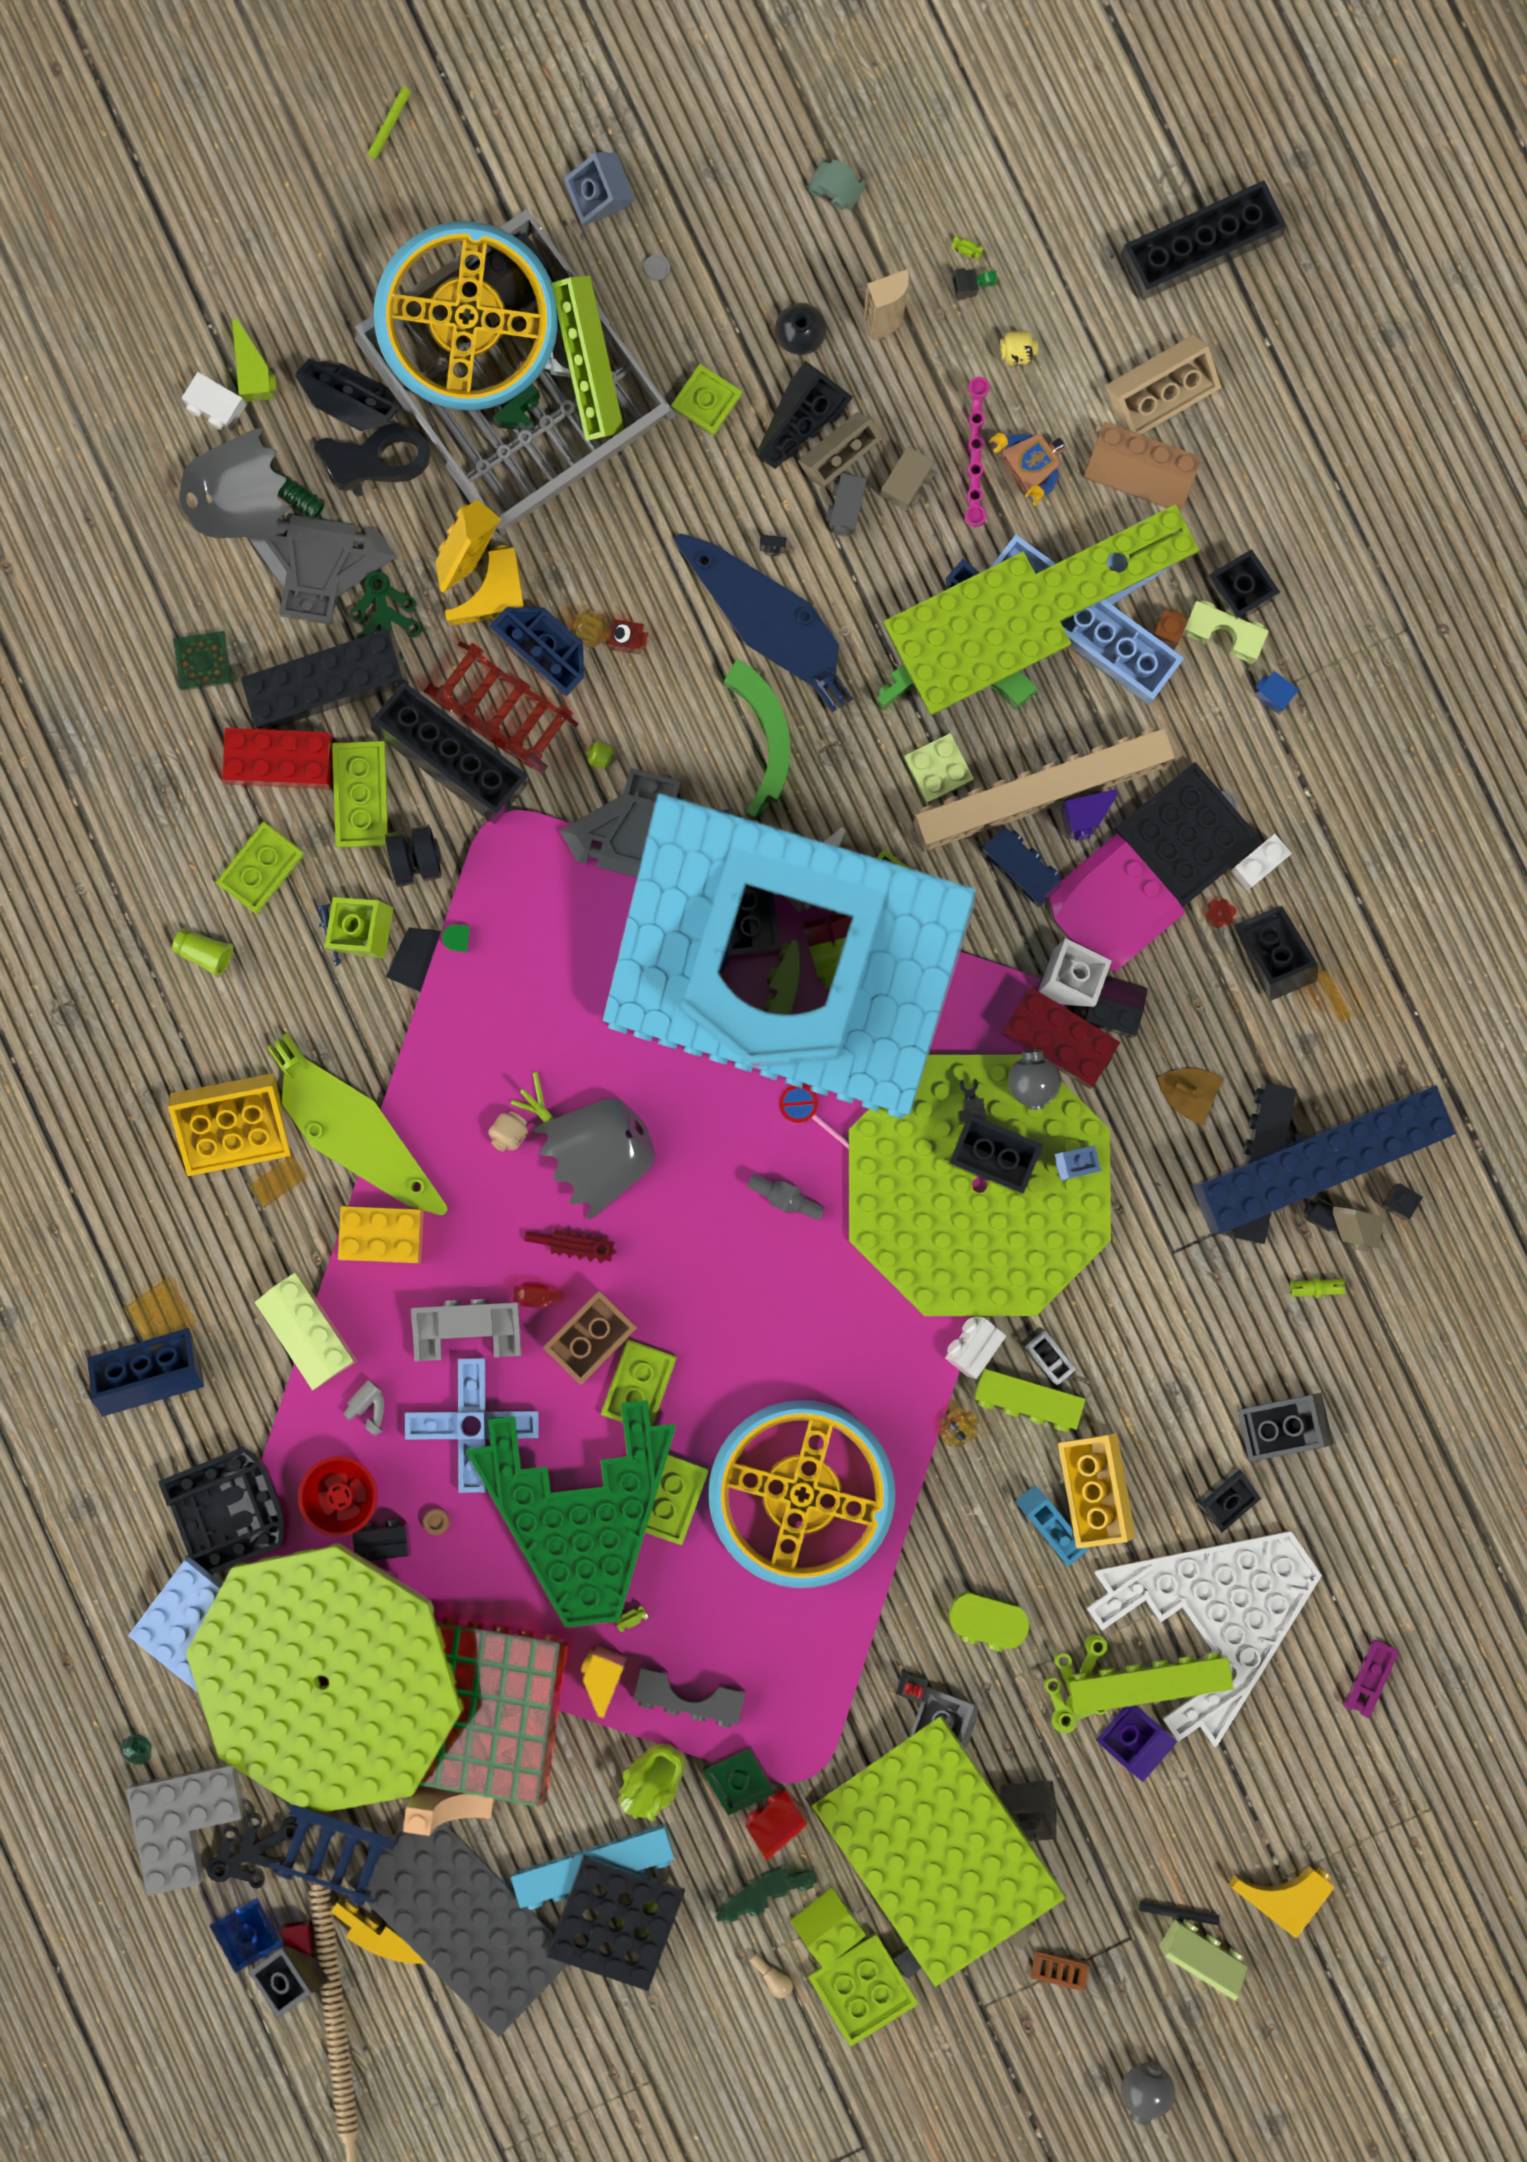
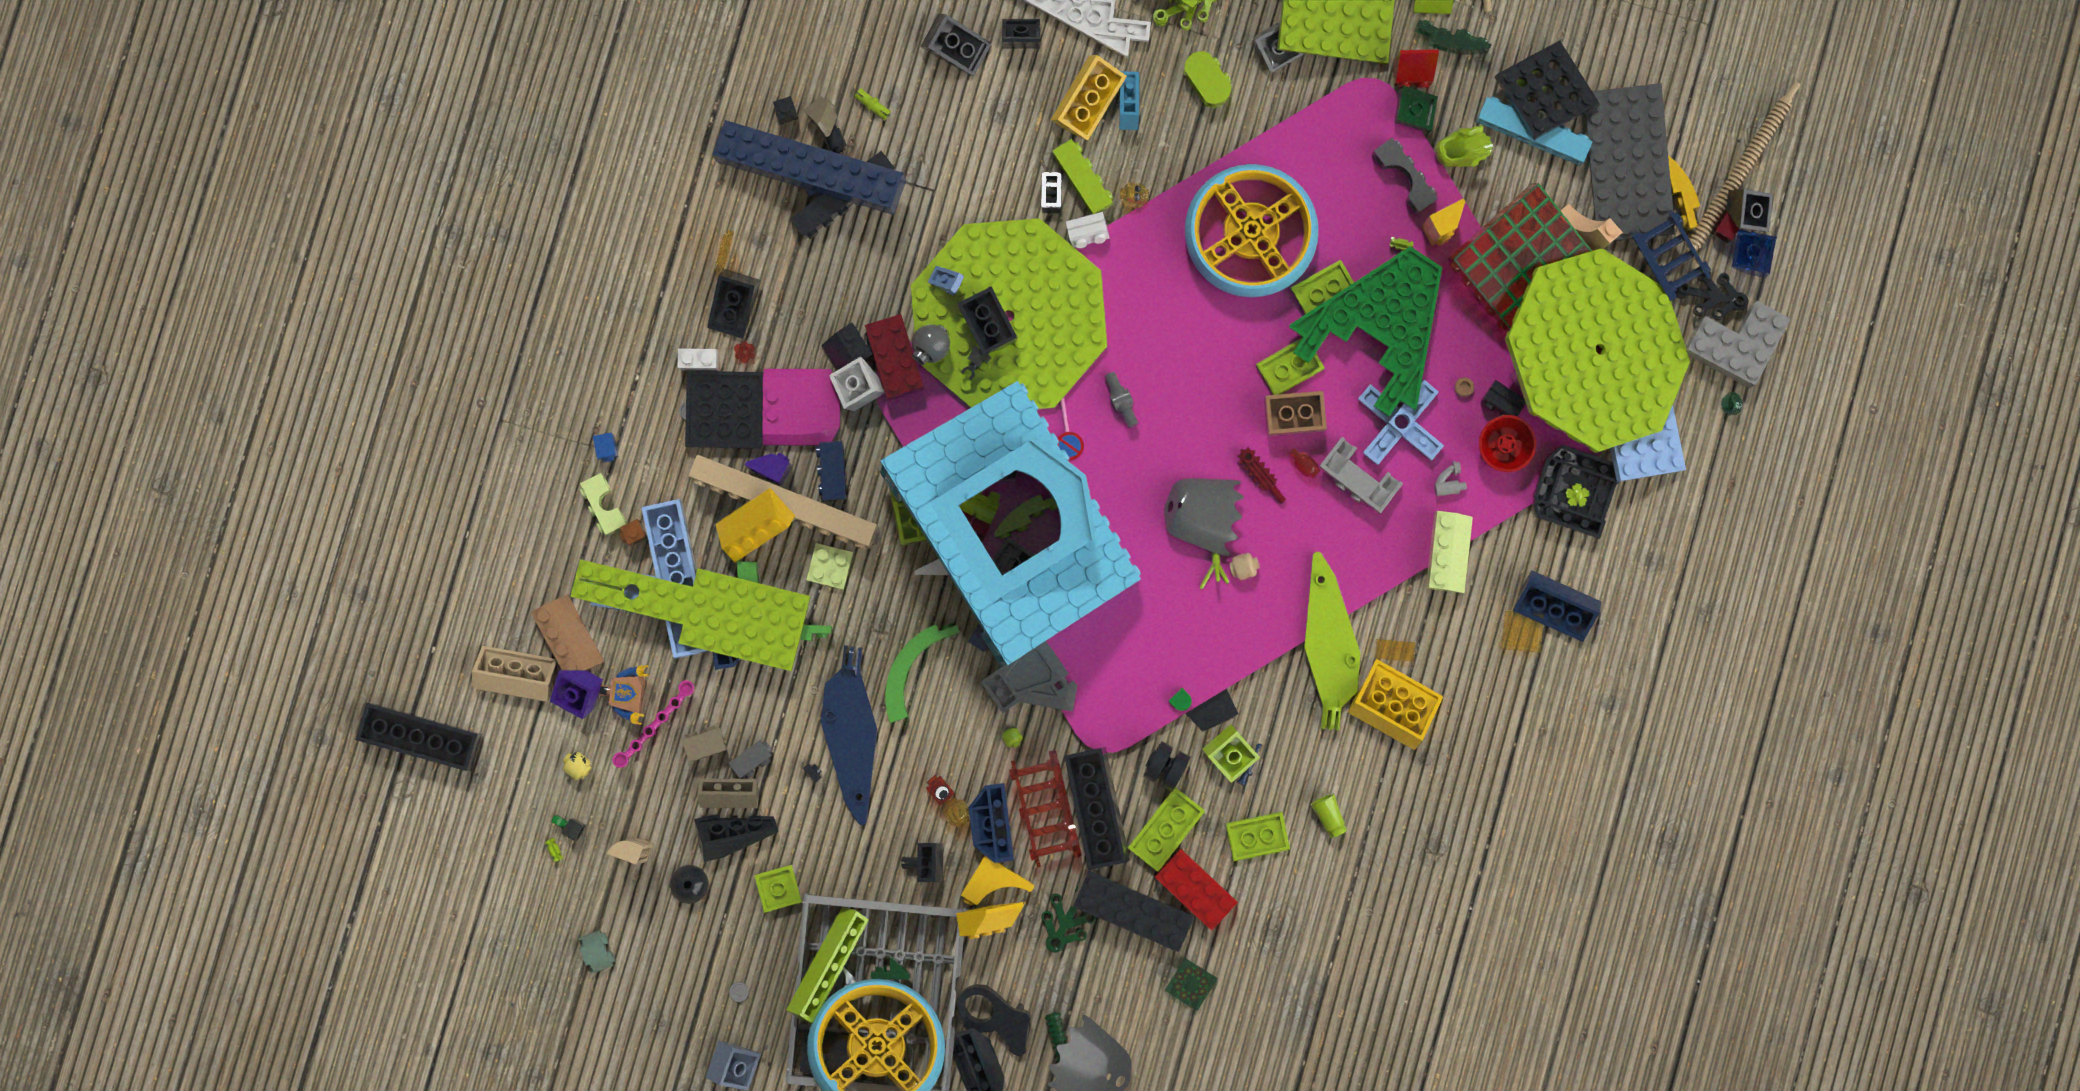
camera: 140 degrees left, 0 degrees up
(220, 1507) = (1577, 495): none -> lime plant
(319, 563) = (1077, 982): dark grey plate -> none
(380, 1234) = (1363, 569): yellow brick -> none
(576, 552) = (928, 862): none -> black brick
(911, 1686) = (1279, 80): pearl dark grey piece -> none
(1052, 737) = (753, 524): none -> yellow slope
(1083, 418) = (576, 691): none -> dark purple slope
(1190, 1091) = (847, 269): pearl gold shield -> none
(1244, 585) = (571, 520): black slope -> none

